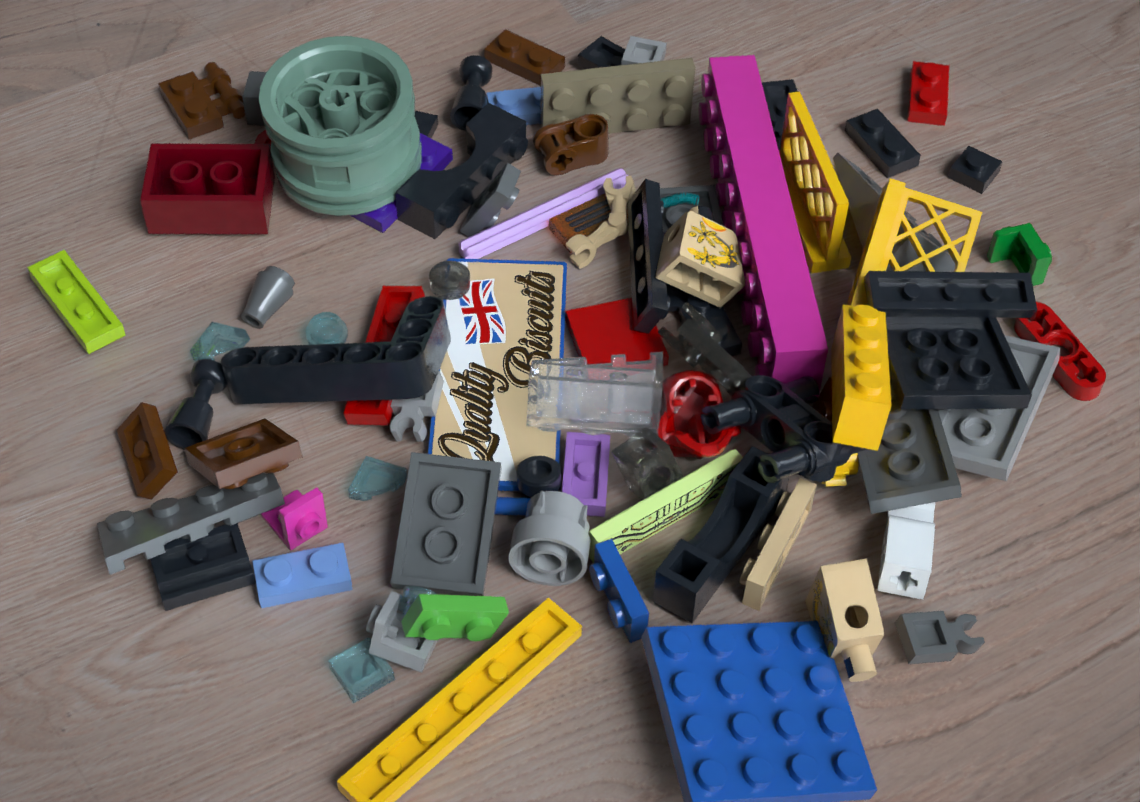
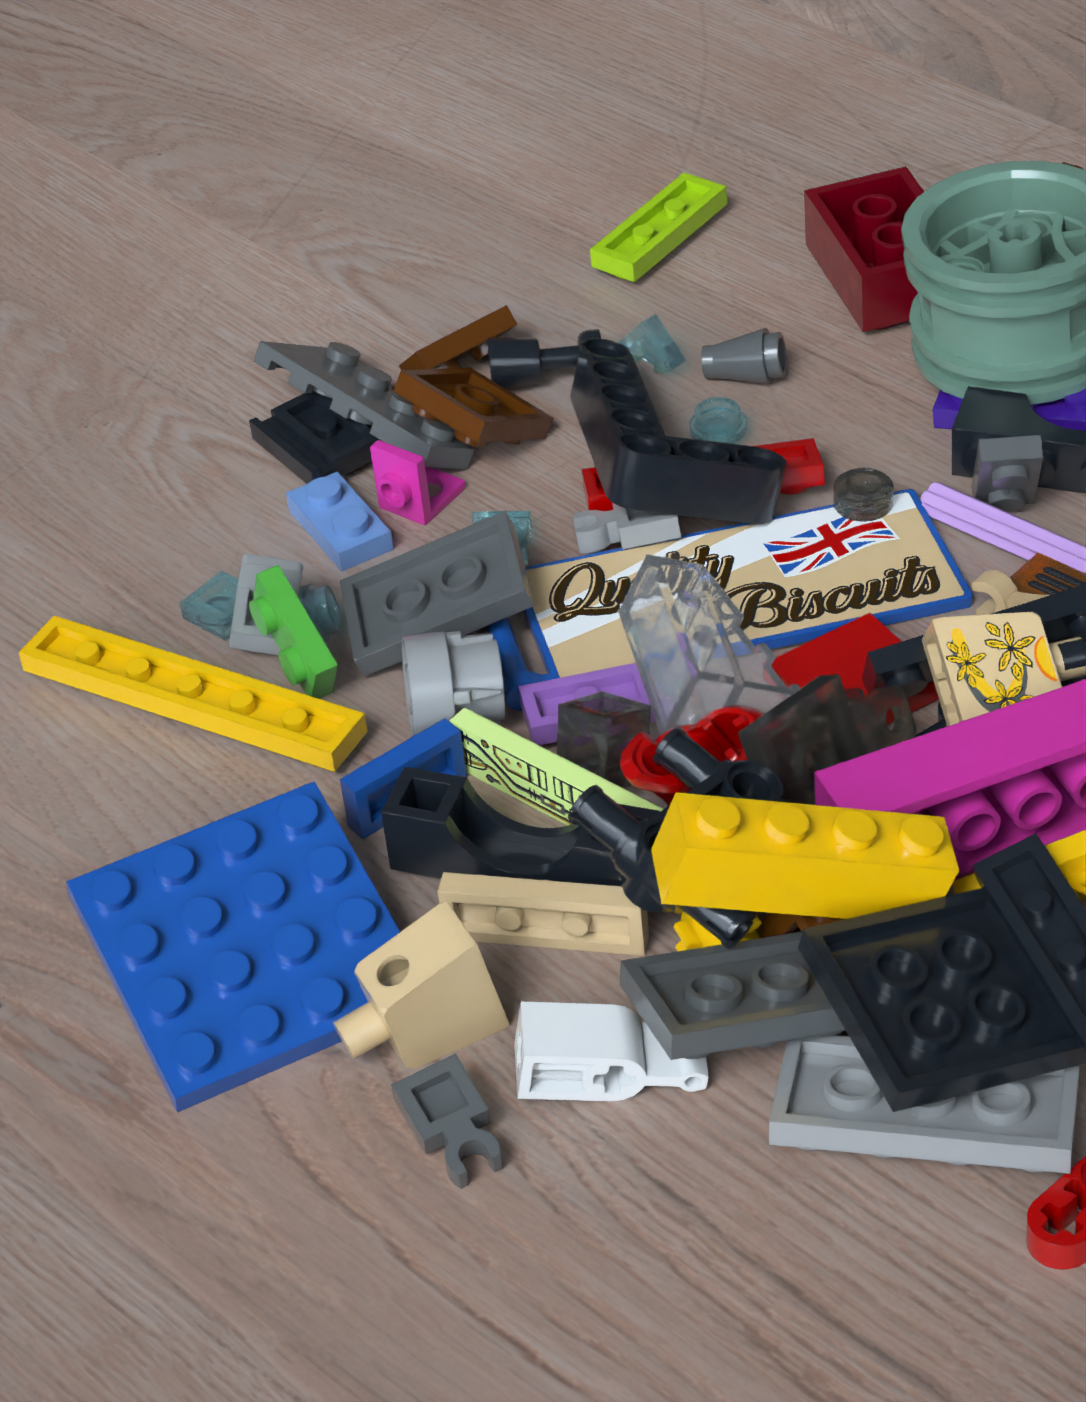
camera: 80 degrees right, 10 degrees down
(538, 474) = (551, 653): black tile -> none

